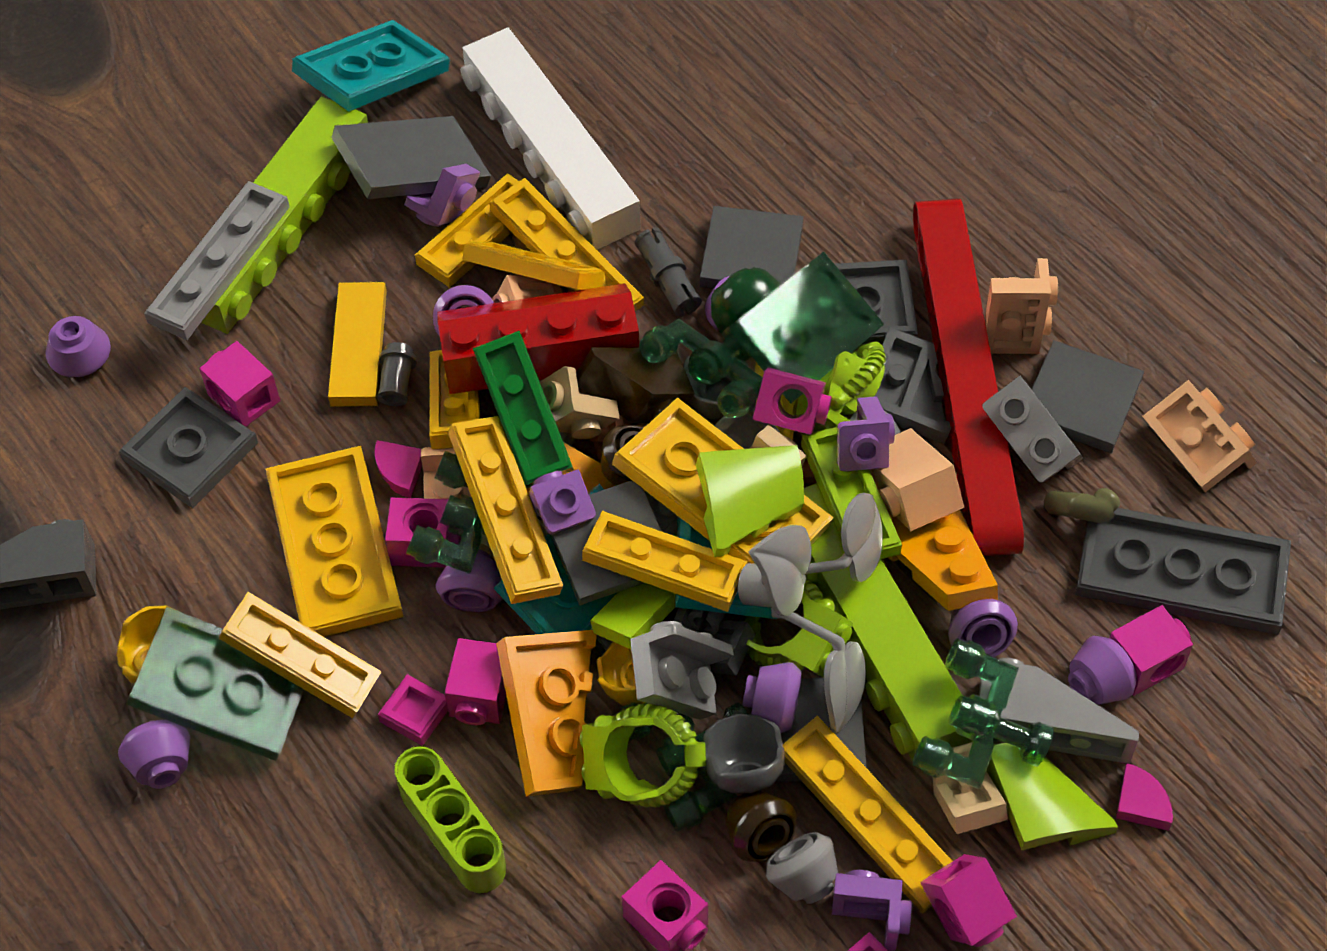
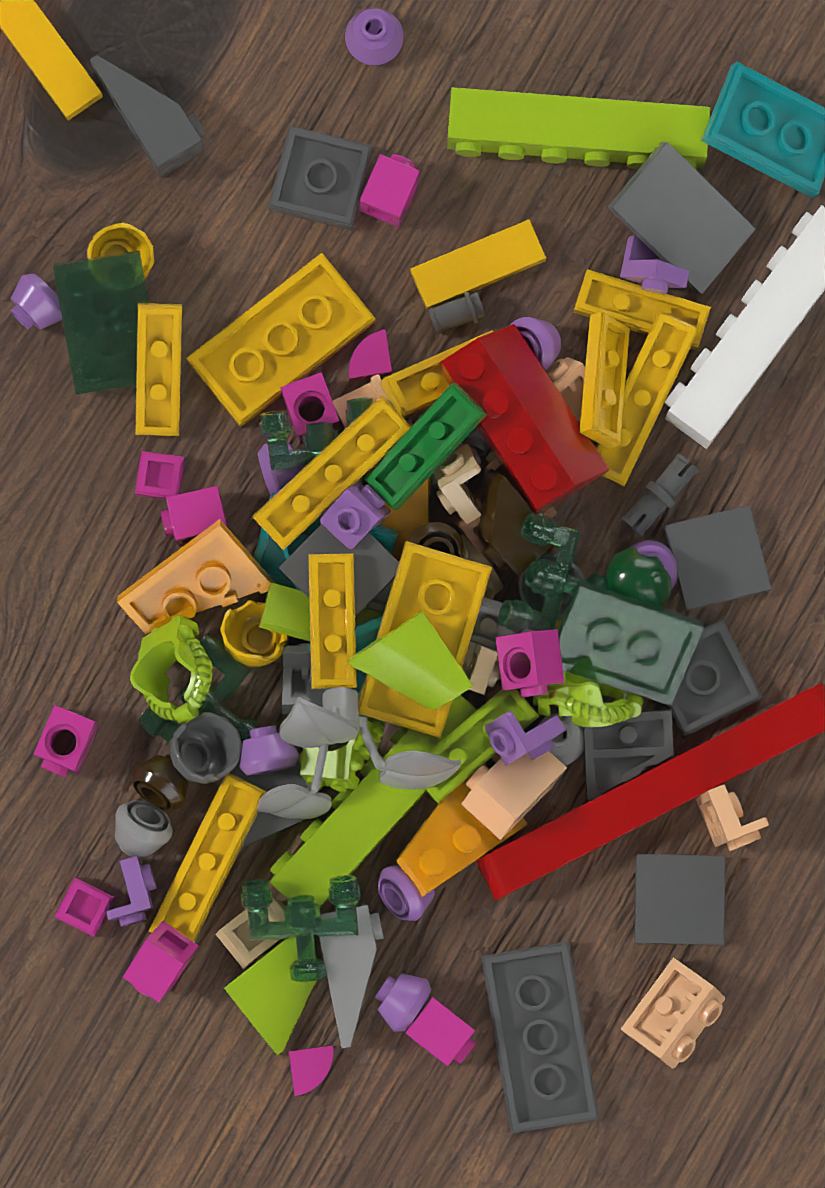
camera: 65 degrees right, 25 degrees up
(217, 260) = (490, 113): light grey tile -> none
(446, 796) = (75, 526): lime beam -> none
(676, 670) = (247, 669): light grey bracket -> none
(1031, 430) = (609, 872): light grey bracket -> none
(1083, 506) = (552, 931): olive arm -> none

